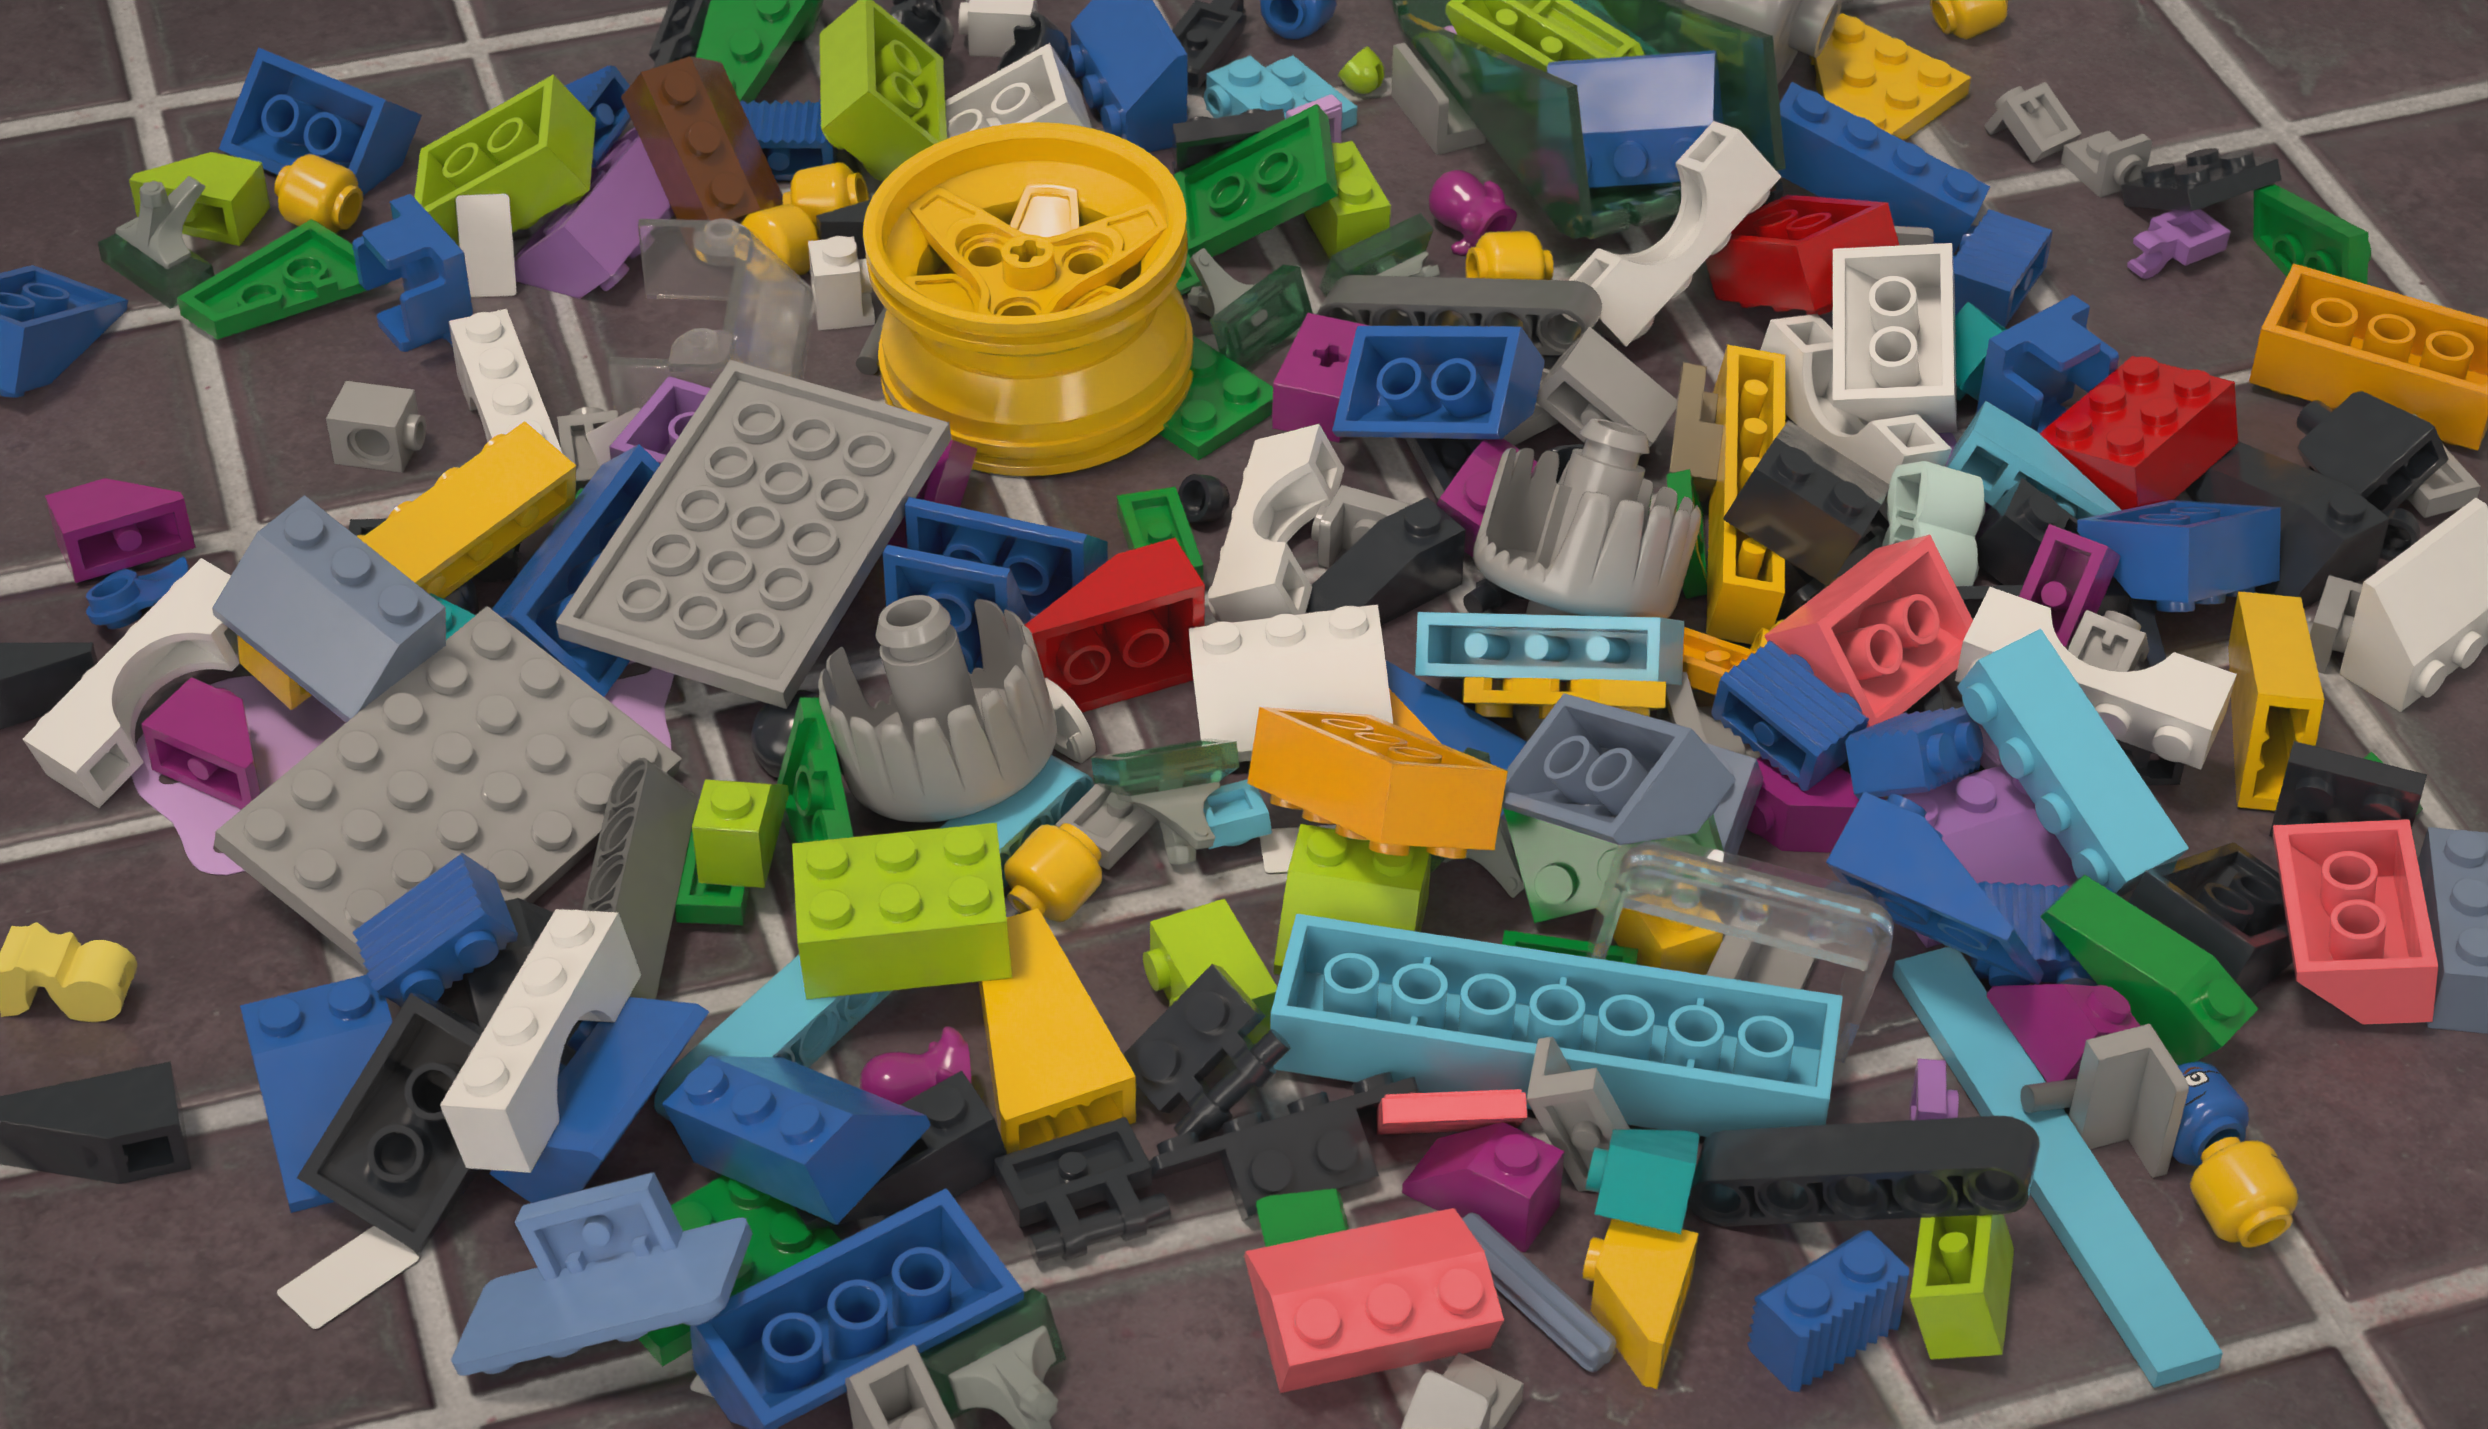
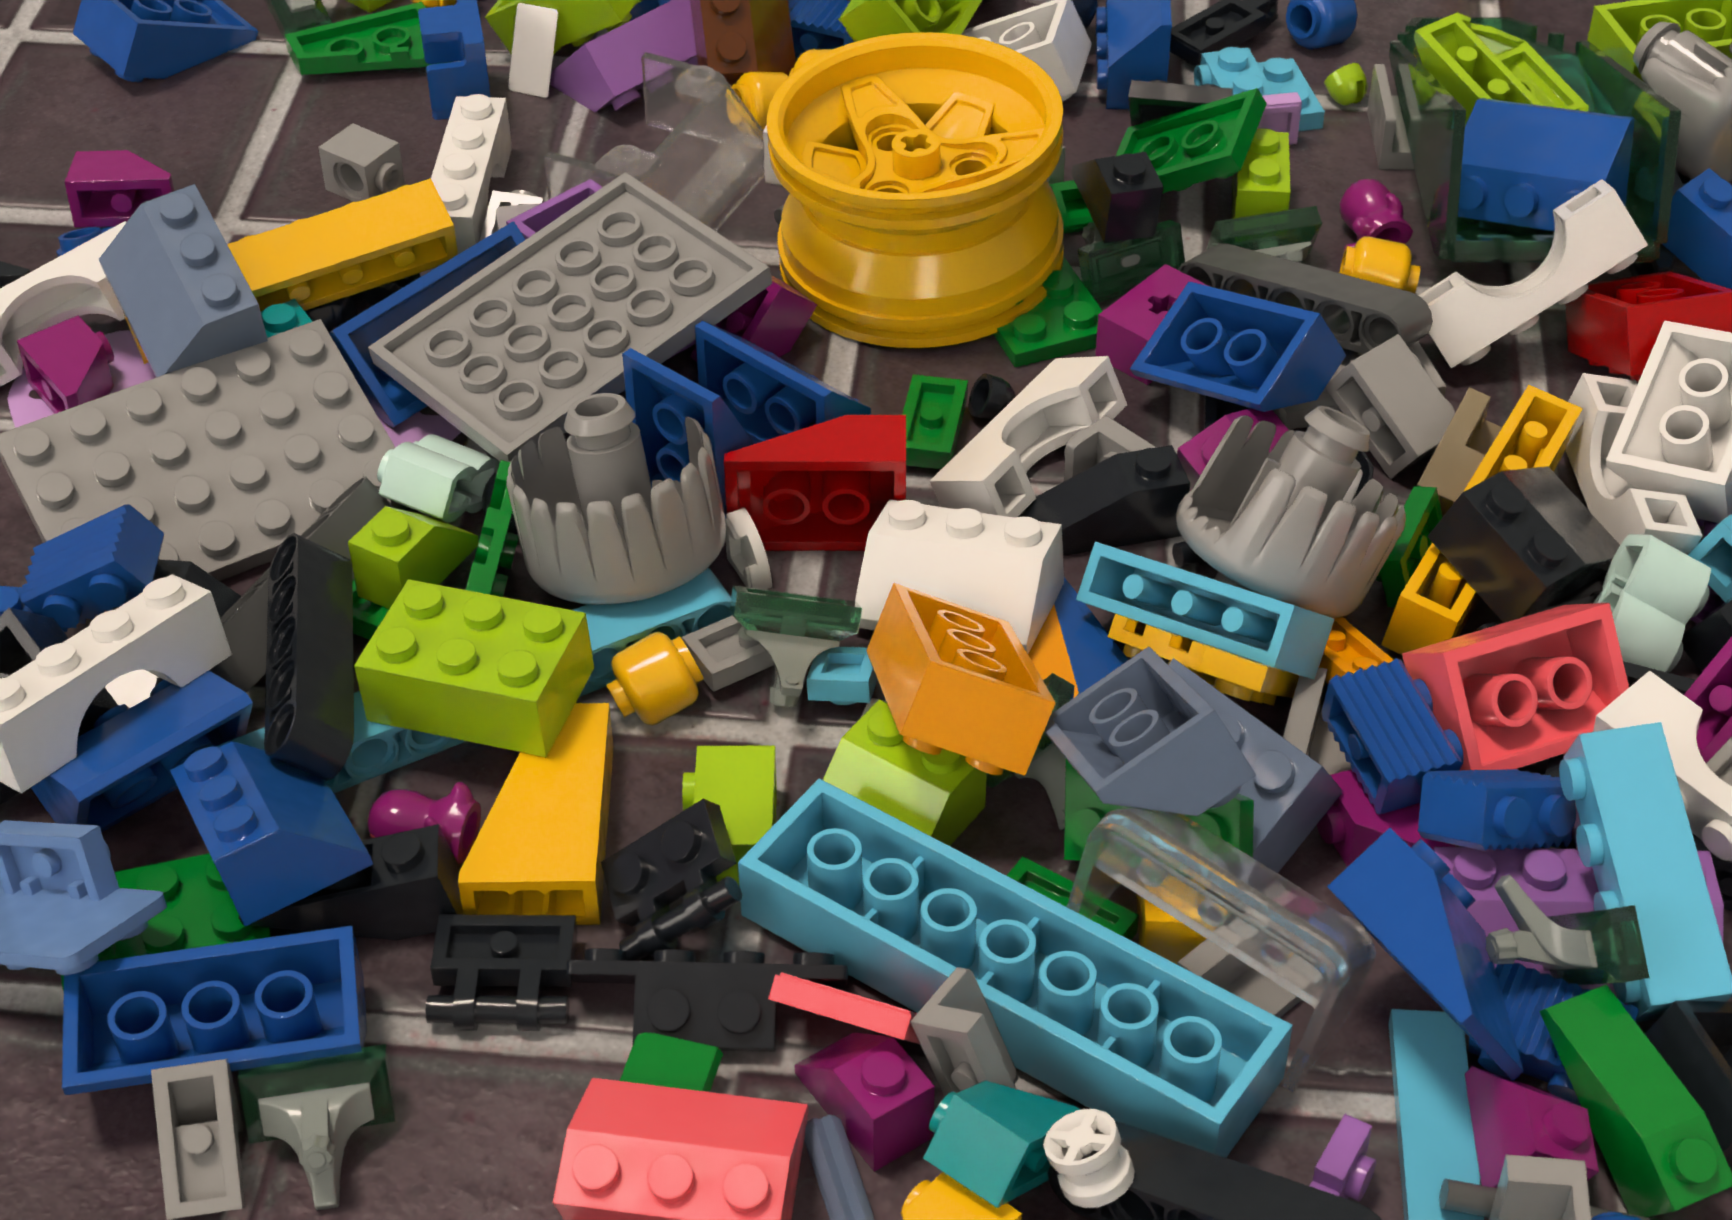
camera: 25 degrees right, 0 degrees up
(706, 737) = (436, 477): none -> light aqua brick
(725, 951) = (309, 658): none -> black beam
(1238, 251) = (1121, 195): none -> black slope
(1740, 1163) = (1089, 1158): none -> white wheel
(2042, 848) = (1573, 946): none -> piece

